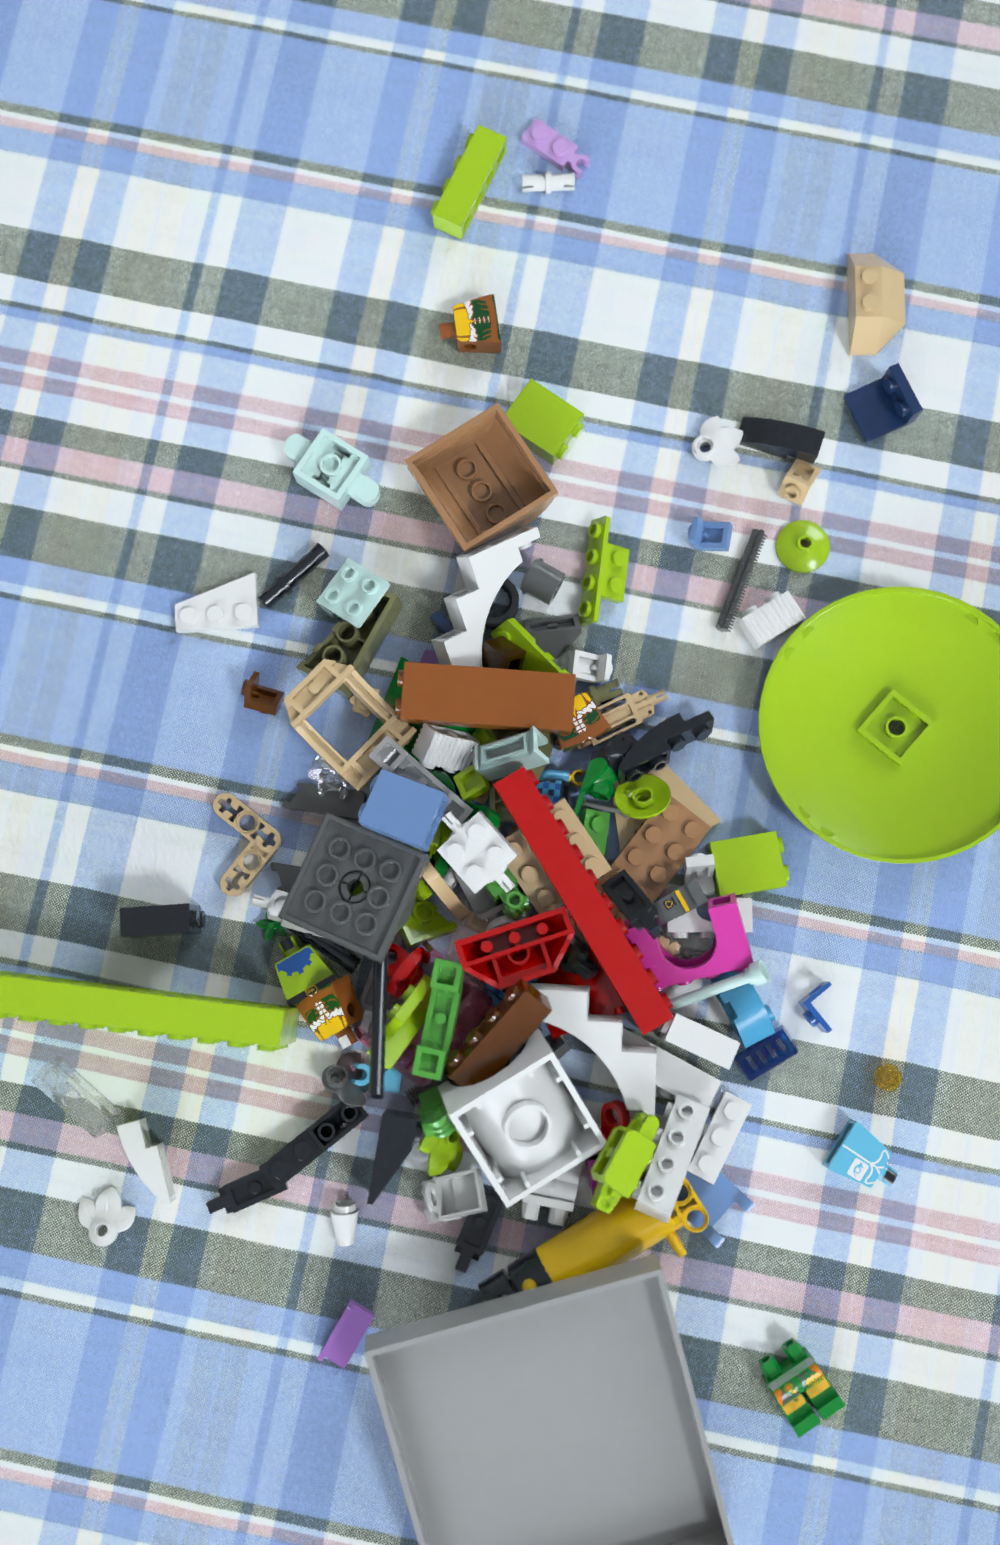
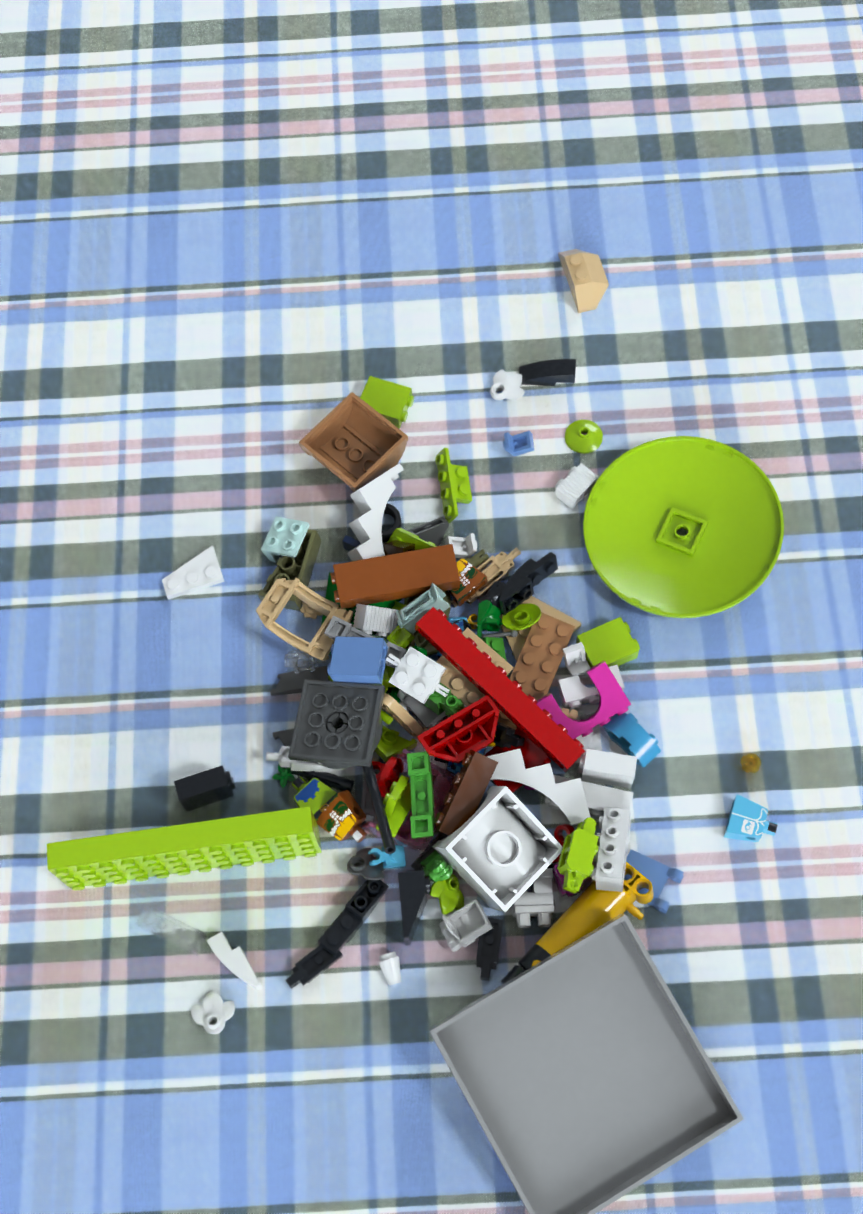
camera: 10 degrees left, 15 degrees down
(255, 846) = (258, 724): tan beam -> none
(260, 697) = (237, 625): reddish brown bracket -> none
(284, 584) = (235, 547): black pin -> none
(332, 469) = (251, 457): light aqua brick -> none
(346, 1334) = (413, 1049): medium lavender panel -> none
(469, 181) = (295, 270): lime brick -> none
(474, 326) = (323, 355): torso -> none
(542, 581) = (413, 500): dark grey piece -> none
(548, 182) = (348, 258): white pin -> none
(554, 147) = (346, 237): lavender plate -> none
(633, 903) = (536, 685): black hinge -> none
(680, 902) = (567, 678): dark grey leg -> none
(719, 1137) = (643, 832): white arch -> none
(740, 579) = (548, 467): dark grey axle -> none
(754, 974) = (634, 708): light aqua piece -> none
(781, 1056) = (665, 752): clear blue slope -> none
(793, 1377) = (755, 994): green hips -> none
(798, 481) = (568, 396): tan bracket -> none
(811, 1014) = (682, 732): blue bracket -> none
(884, 404) = (610, 335): dark blue bracket -> none

